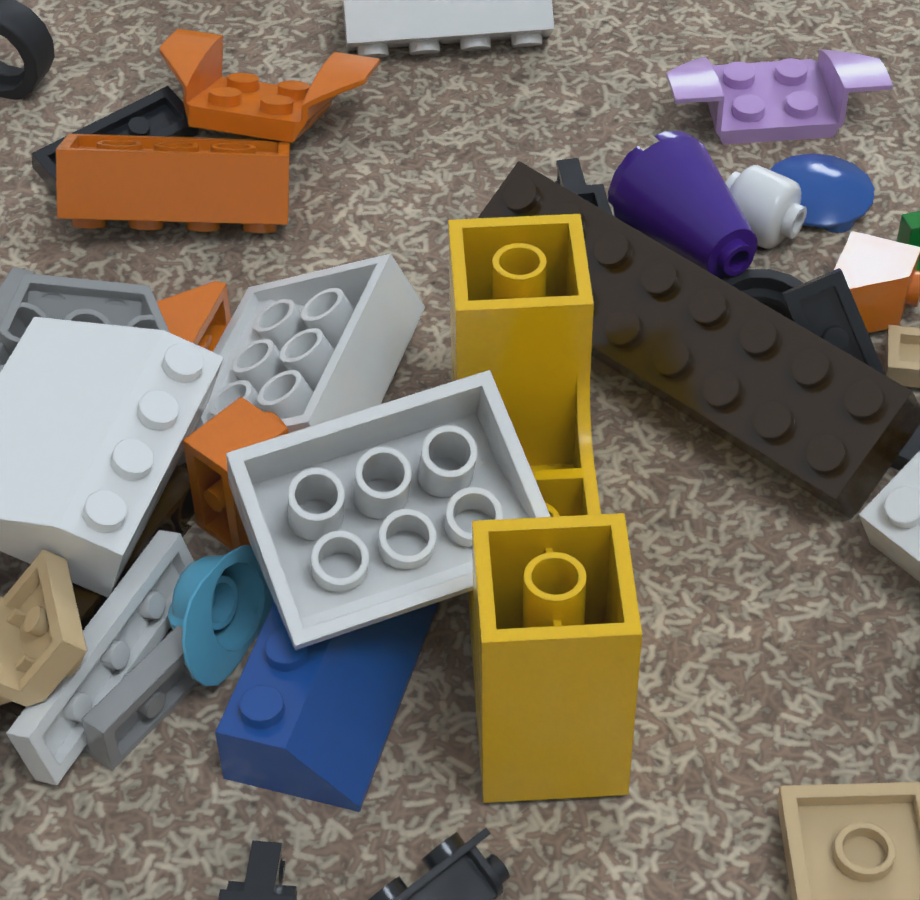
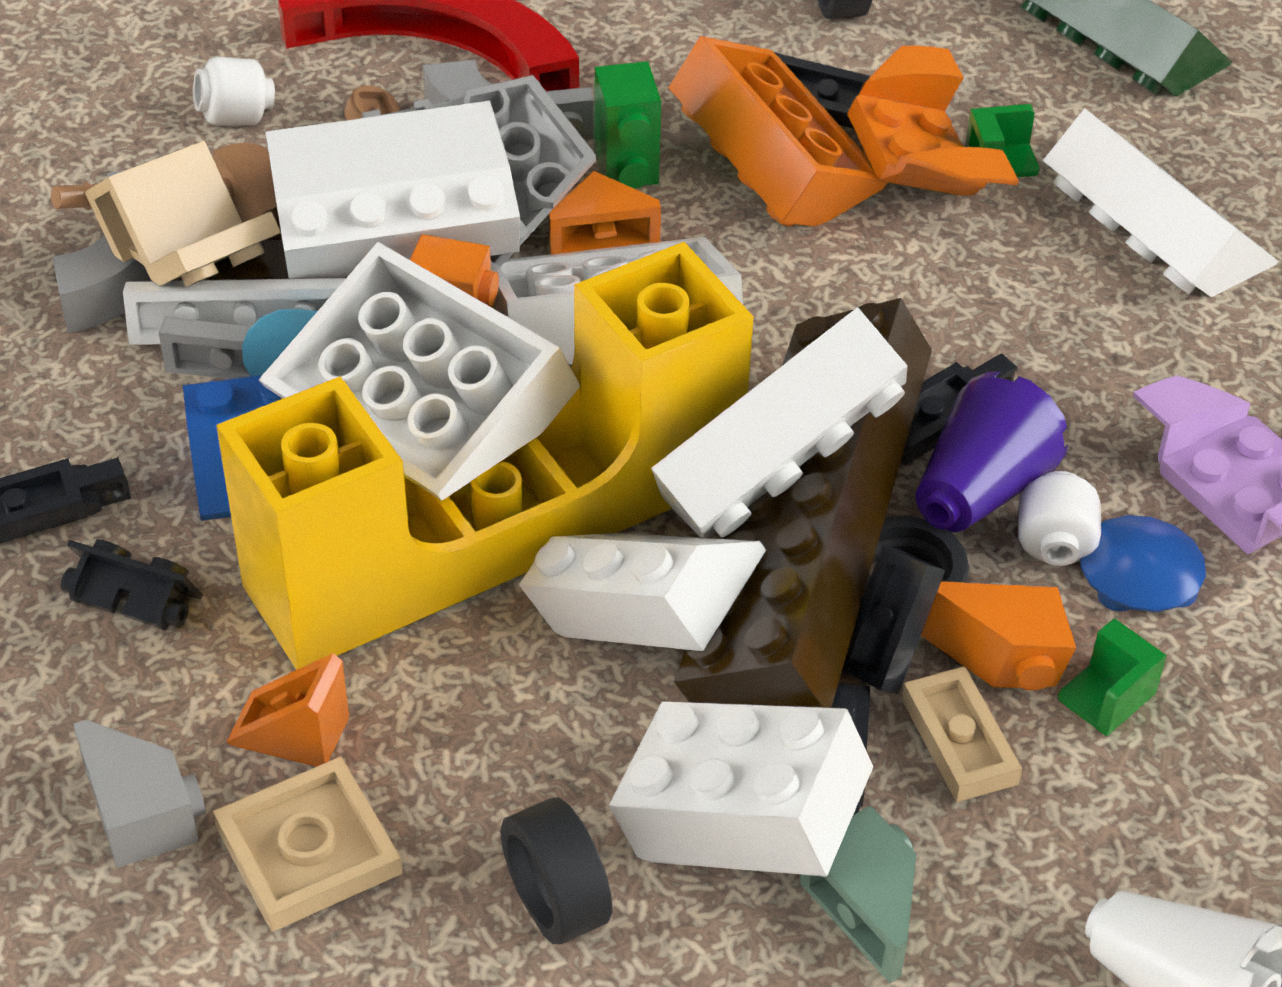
camera: 60 degrees right, 0 degrees up
(93, 241) = (627, 123): none -> green brick
(286, 59) = (1007, 130): none -> green panel
(646, 290) = (781, 426): none -> white slope
(701, 805) = (296, 714): none -> orange slope
(717, 471) = (639, 586): none -> white slope

